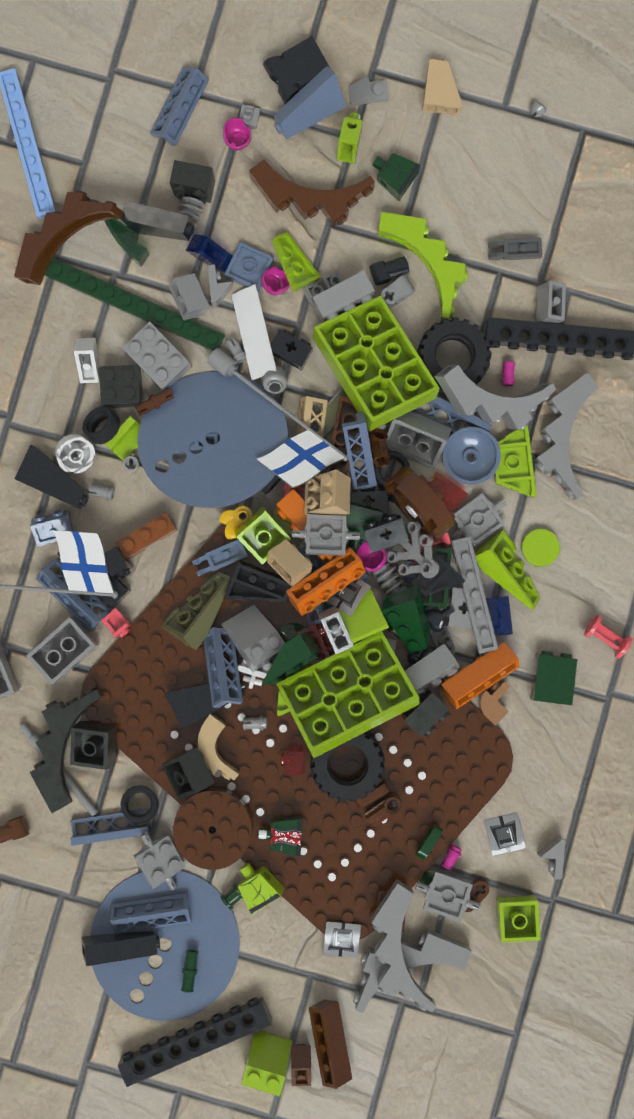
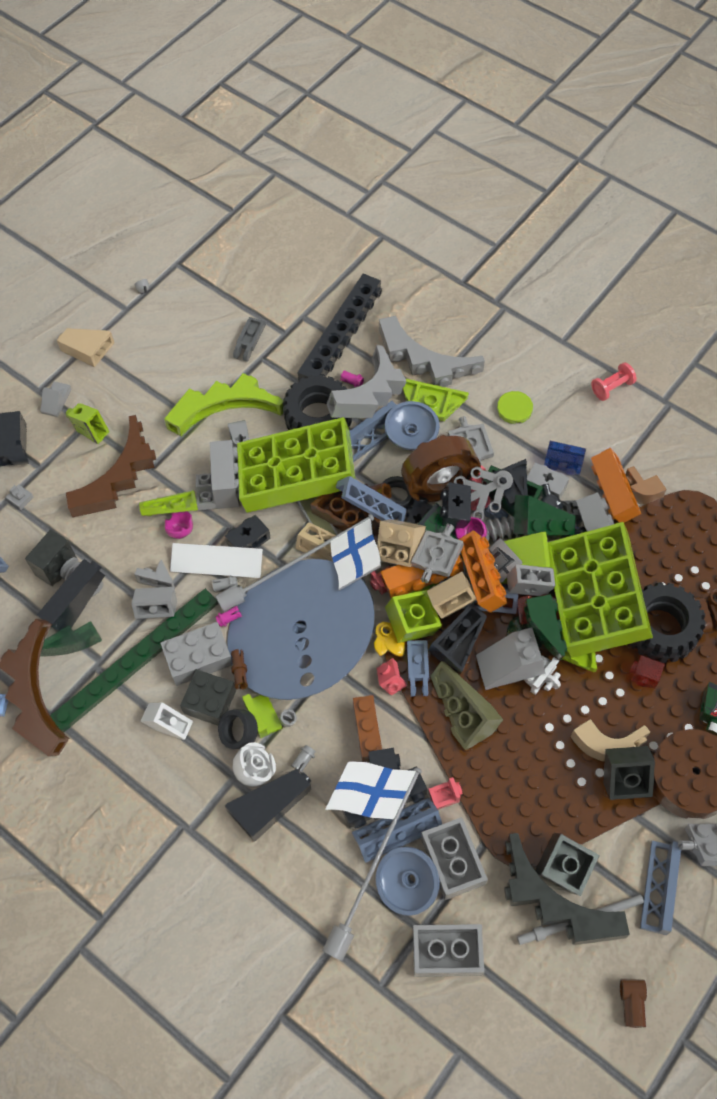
camera: 65 degrees left, 25 degrees down
(29, 619) = (395, 883): none -> sand blue dish
(43, 526) = (318, 823): sand blue bracket -> none
(128, 794) = (648, 827): black tyre -> none
(195, 702) = (556, 735): black slope -> none
(201, 365) = (227, 617): none -> dark pink pin
(203, 535) = (390, 678): none -> coral bracket
(209, 252) = (121, 572): clear blue slope -> none
(217, 668) = (531, 700): sand blue fence -> none
(236, 134) = (29, 510): dark pink hair -> none
(248, 265) = (152, 546): sand blue tile -> none
(256, 723) = (596, 694): light grey pin -> none
(275, 381) = (270, 558): light grey head -> none
(311, 104) = (40, 439): sand blue slope -> none
(384, 271) = (217, 430): black piece -> none
(396, 174) = (137, 400): dark green torso -> none
(418, 438) = (378, 460): light grey slope -> none
(426, 714) = (642, 536): pearl dark grey brick -> none
(474, 595) = (541, 463): light grey tile -> none
(501, 564) = (513, 441): lime wedge -> none
(551, 302) = (307, 325): light grey brick -> none
(554, 678) = (638, 431): dark green panel -> none

